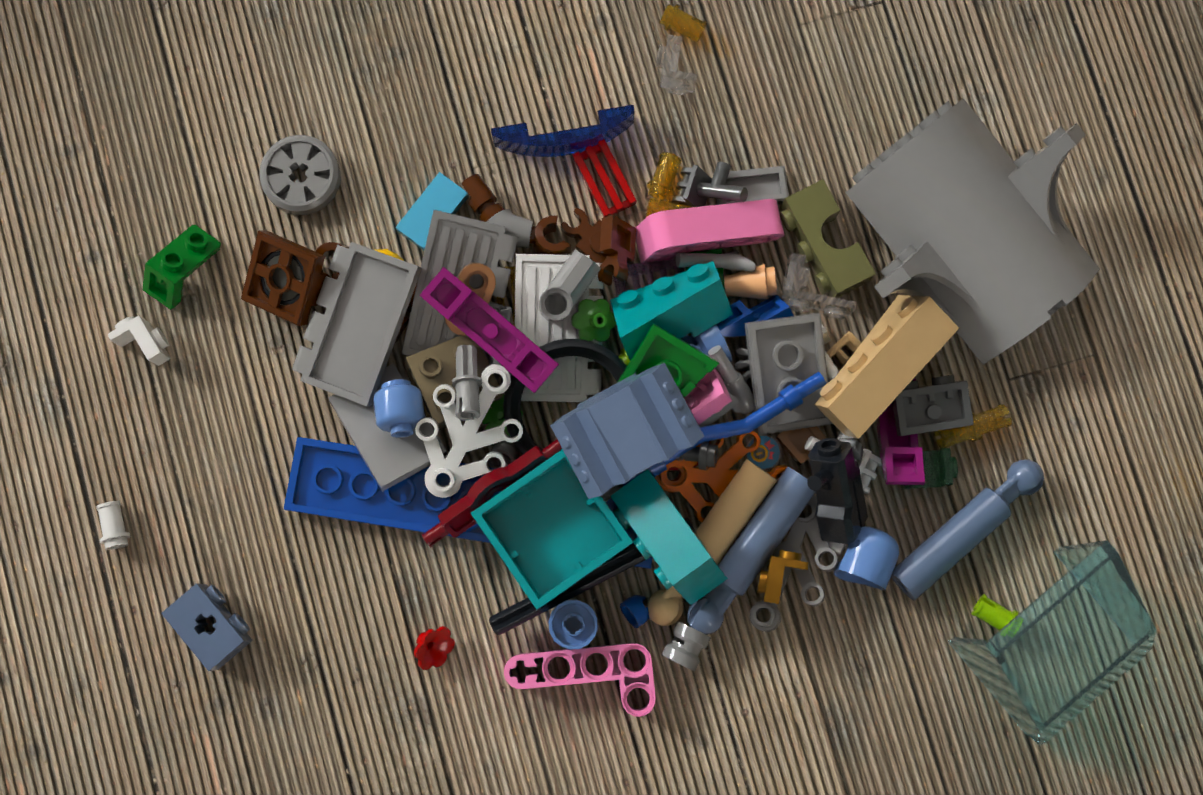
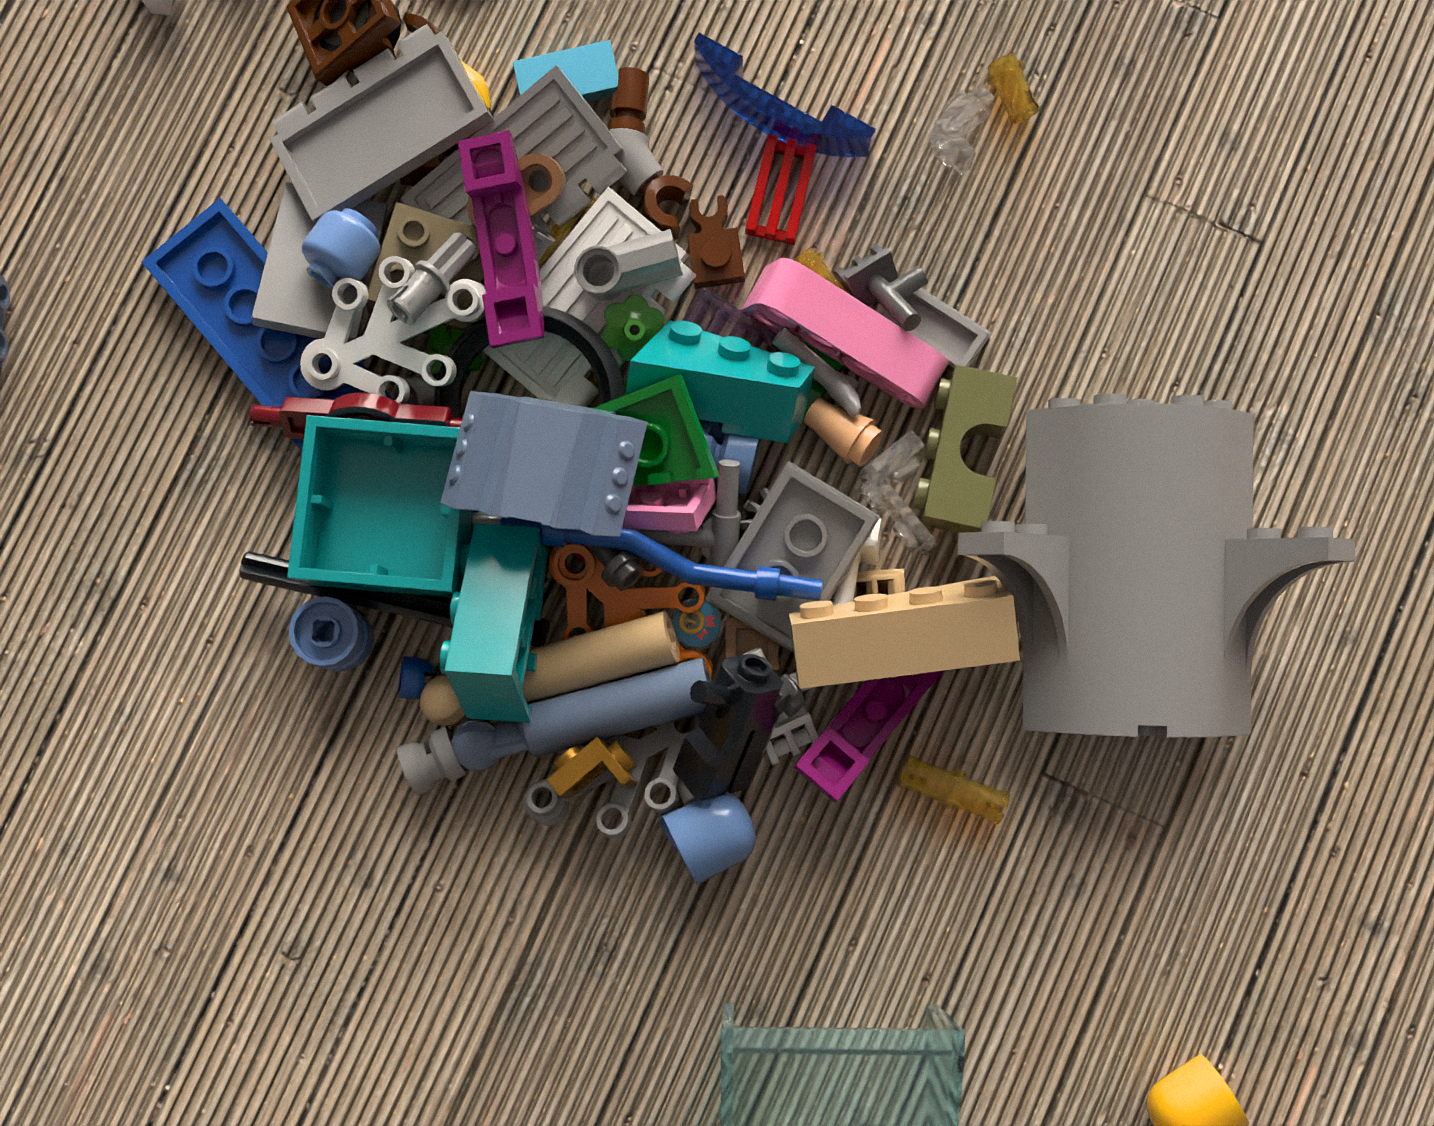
camera: 45 degrees right, 0 degrees up
(433, 647) = (169, 537): red plant -> none
(579, 673) = (297, 694): bright pink beam -> none
(618, 244) = (728, 268): reddish brown plate -> none
(664, 176) = (848, 238): clear yellow pin -> none
(766, 310) = (798, 451): blue slope -> none
(932, 406) = (922, 727): dark grey bracket -> none
(939, 470) = (869, 800): clear green bracket -> none
(965, 530) = (847, 895): sand blue piece -> none
(993, 613) = (796, 1007): lime pin -> none

